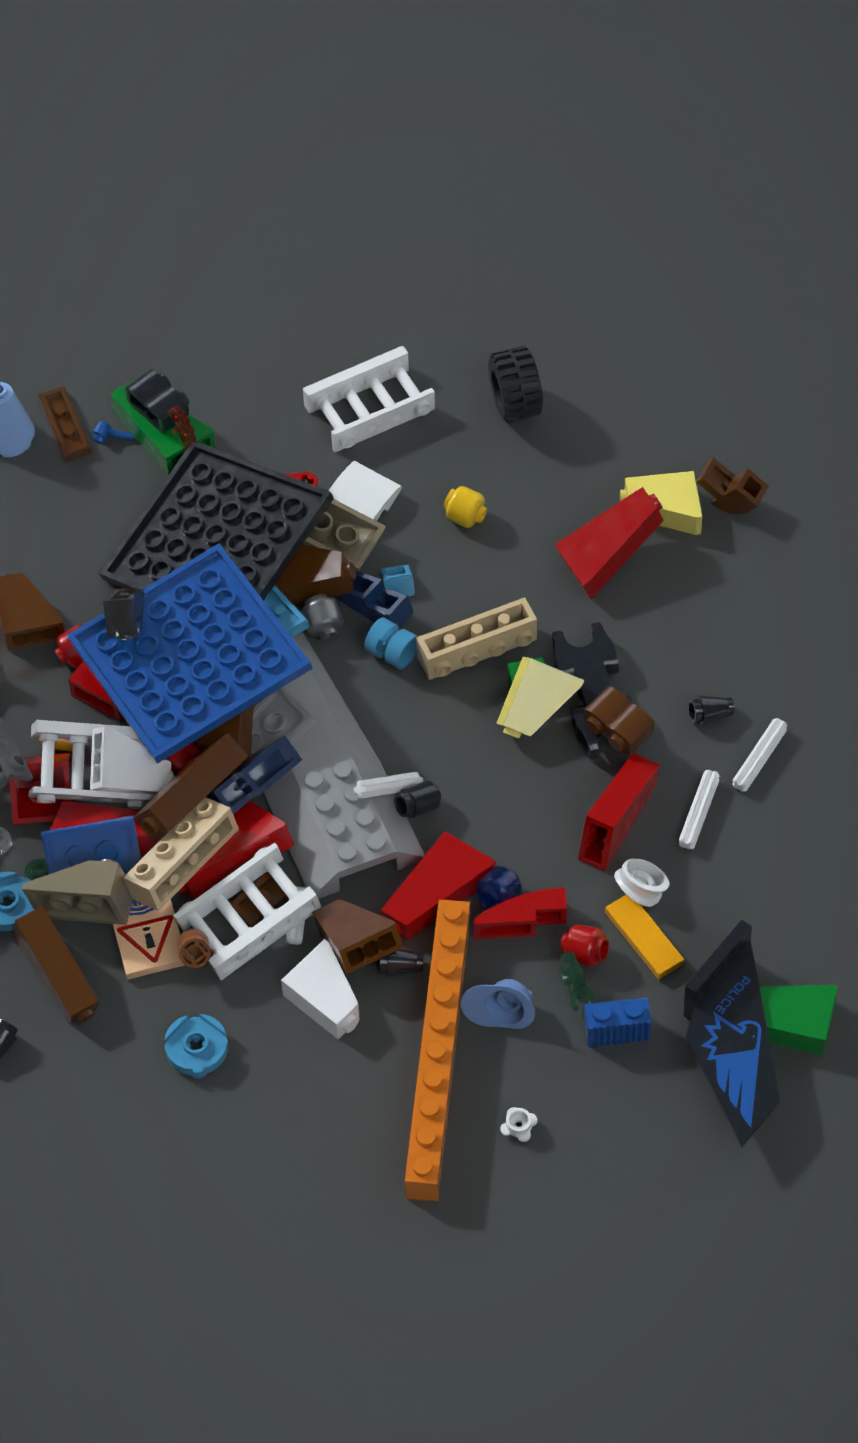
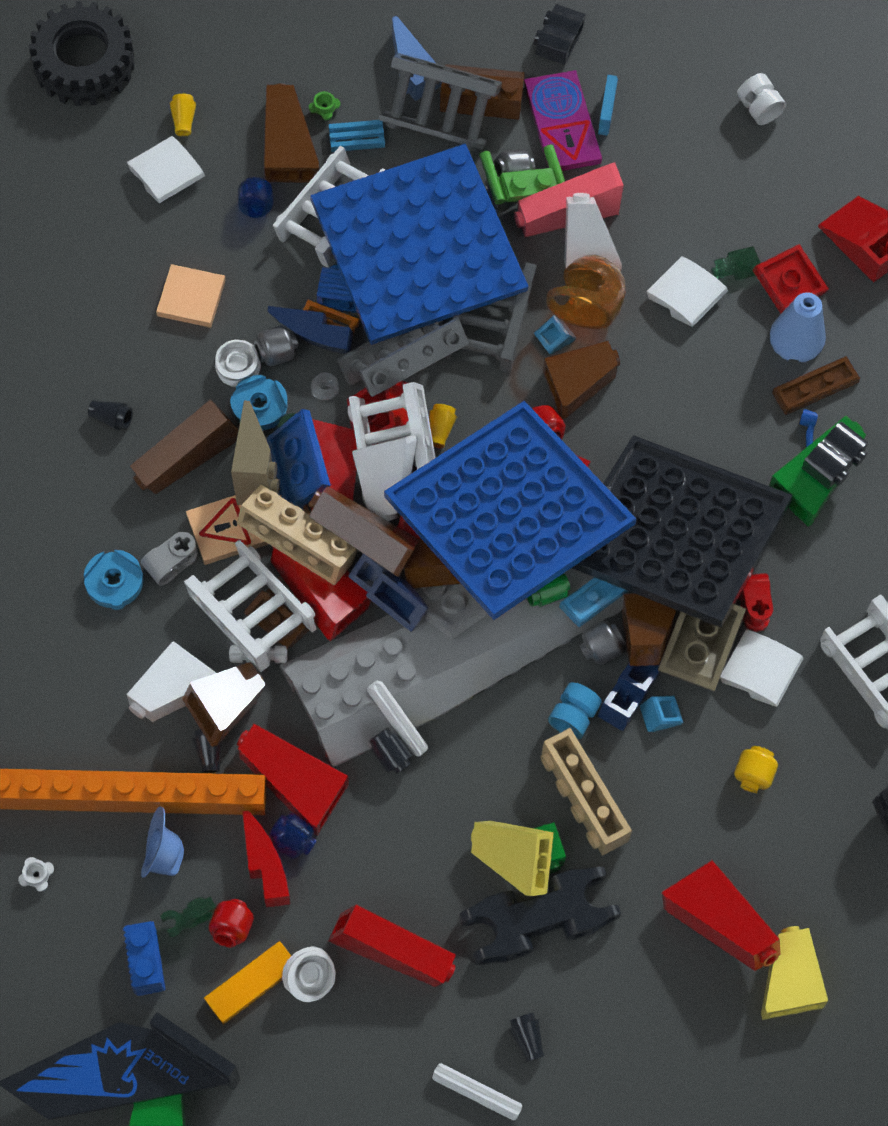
camera: 80 degrees right, 10 degrees up
(124, 613) = (542, 441): clear smoke slope -> none
(180, 986) = (168, 560): none -> light grey piece
(184, 427) = (805, 481): clear red piece -> none
(194, 941) = (203, 561): dark orange wheel -> none
(619, 721) = (485, 934): reddish brown brick -> none
(699, 809) = (404, 1030): white axle -> none
(732, 492) = (815, 1044): reddish brown brick -> none

